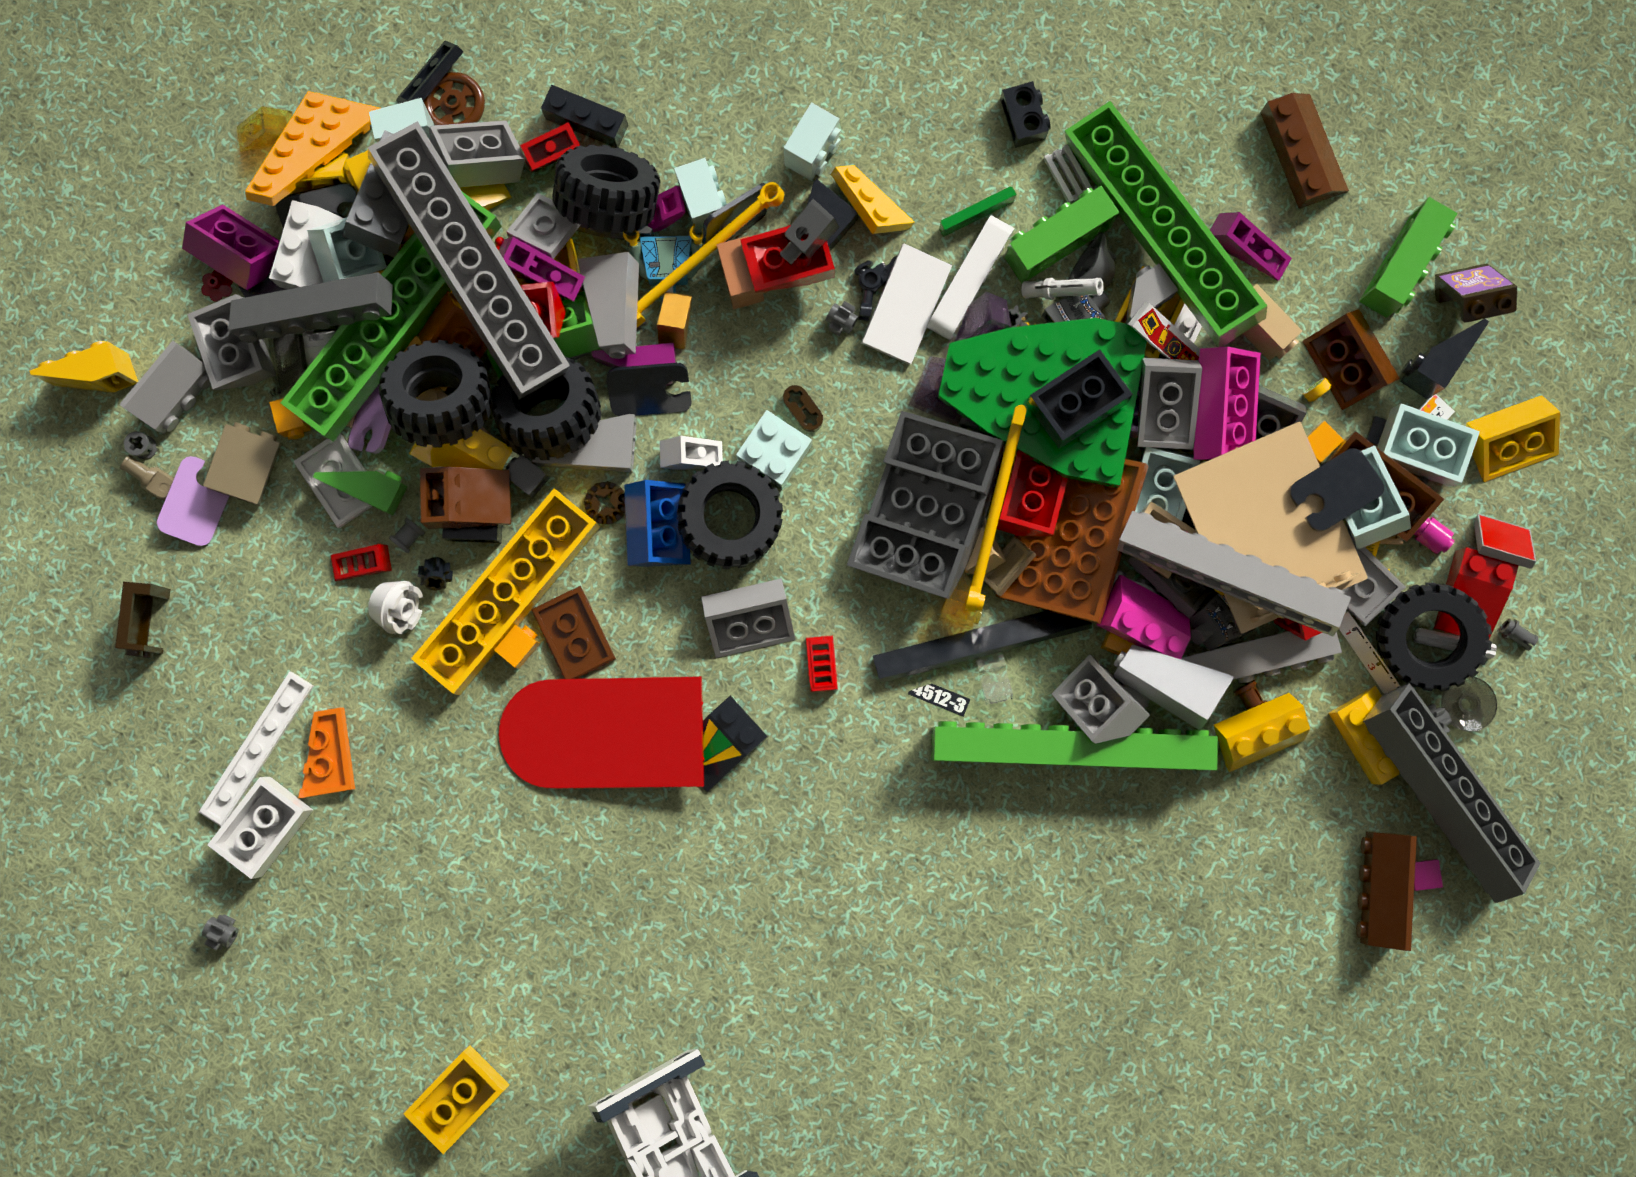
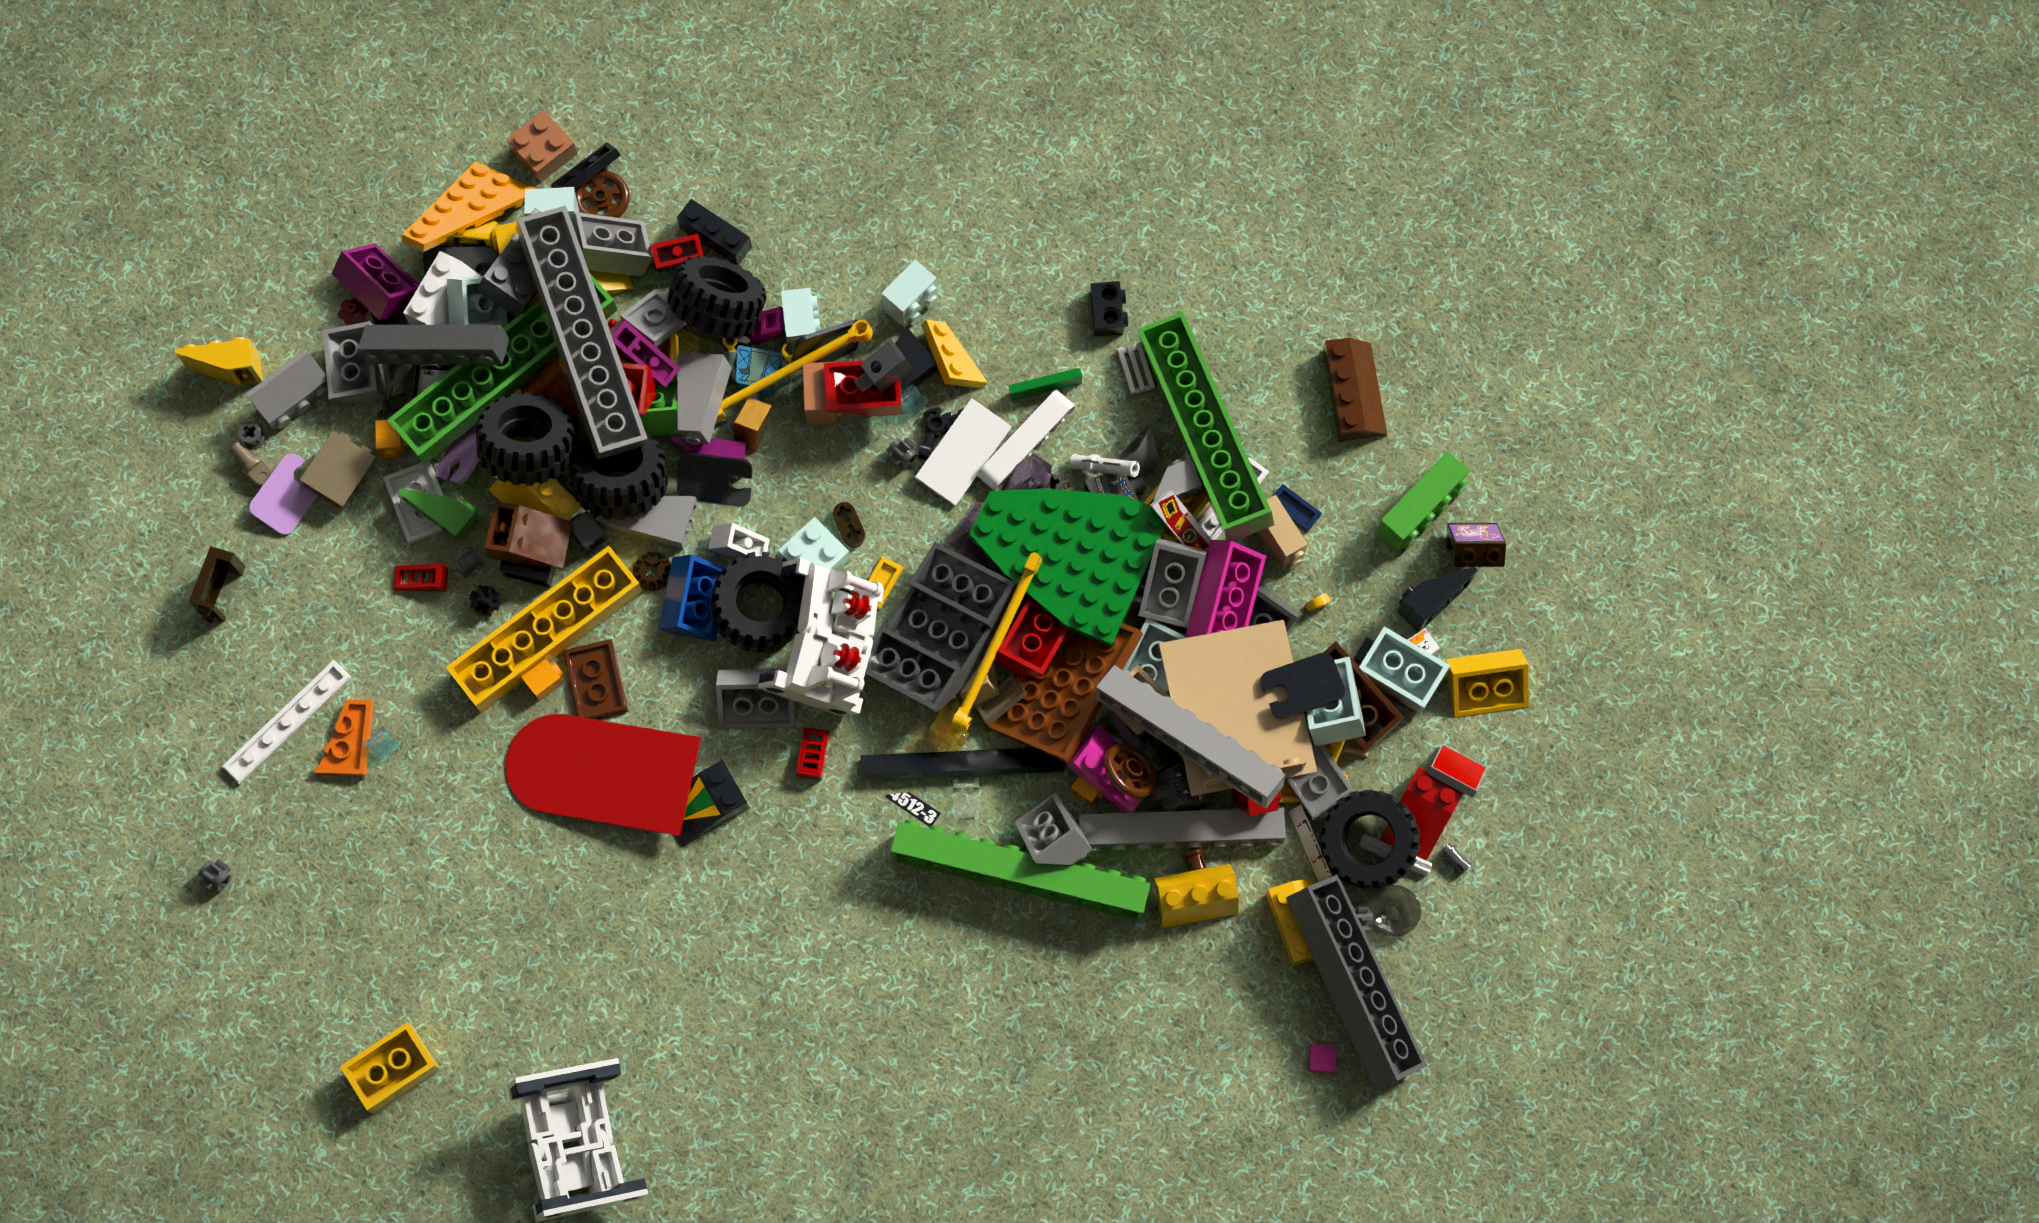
camera: 10 degrees right, 10 degrees down
(260, 827) = (274, 789): white brick -> none
(262, 128) = (427, 185): clear yellow slope -> none
(364, 752) = (382, 744): none -> clear light blue tile
(375, 59) = (542, 146): none -> nougat brick
(395, 606) = (443, 620): white cone -> none
(836, 561) = (842, 656): none -> white container
(841, 259) = (911, 401): none -> clear light blue tile
(850, 464) = (887, 574): none -> yellow tile
(1060, 234) = (1113, 418): bright green brick -> none
(1079, 399) = (1089, 559): black brick -> none
(1171, 621) = (1130, 770): none -> reddish brown plate
(1172, 683) = (1122, 830): slope -> none
(1249, 244) = (1284, 462): magenta slope -> none
(1279, 292) = (1299, 510): none -> dark blue tile
(1324, 440) = (1307, 646): light orange brick -> none
(1350, 359) = (1354, 581): reddish brown slope -> none
(1387, 890) = (1279, 1059): reddish brown slope -> none
(1434, 536) = (1395, 753): dark pink brick -> none

